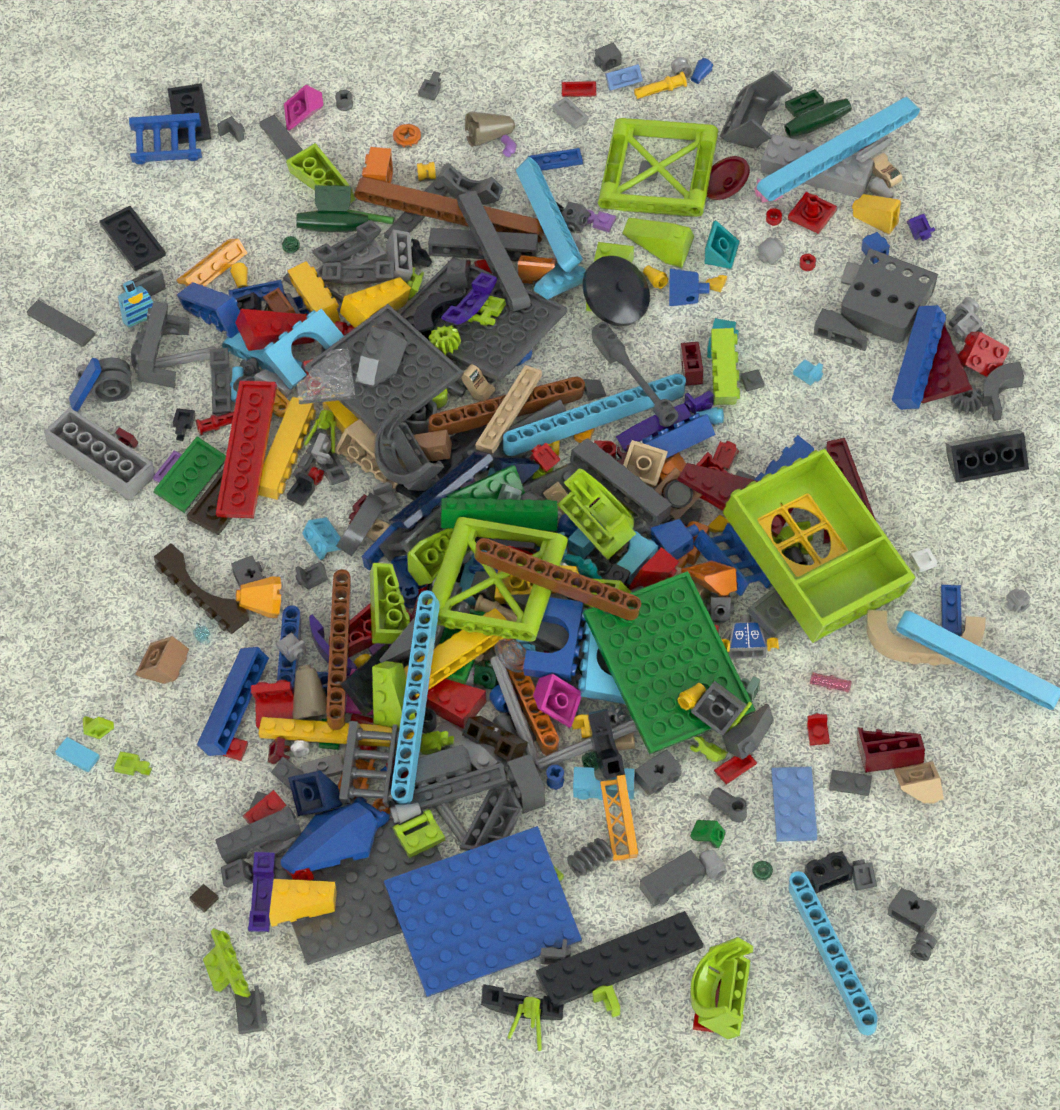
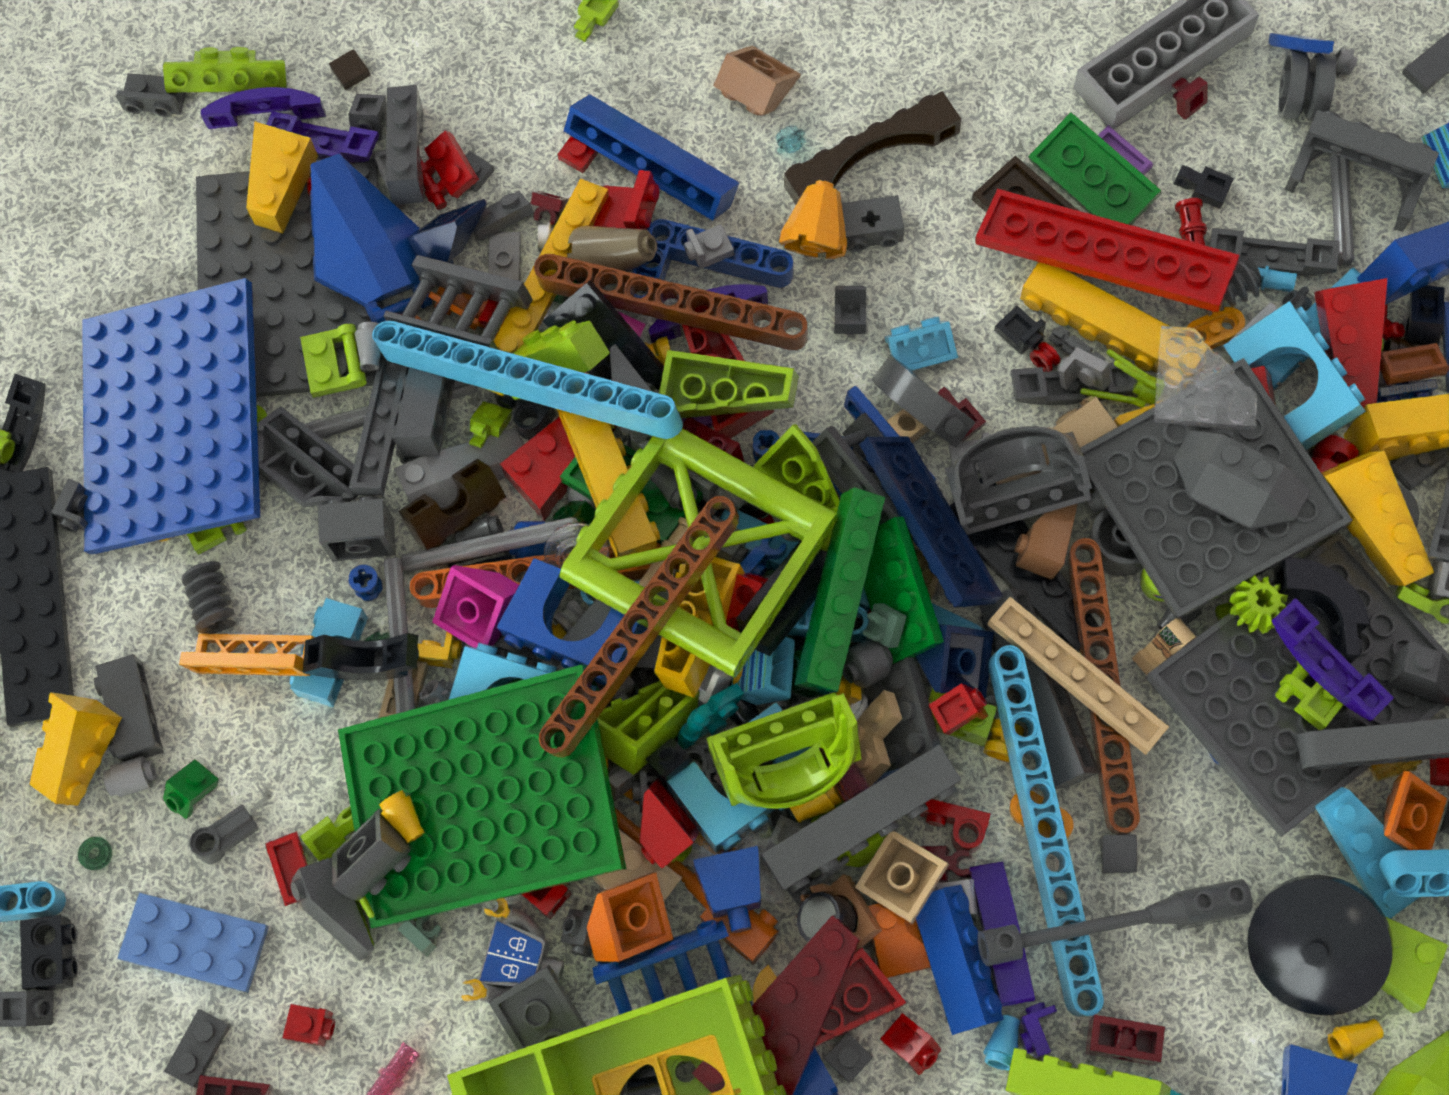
camera: 110 degrees right, 15 degrees up
(253, 955) = (225, 110): none -> dark purple slope
(658, 772) = (308, 723): dark grey brick -> none
(691, 515) = (789, 939): dark grey slope -> none
(708, 887) = (72, 747): none -> yellow wedge

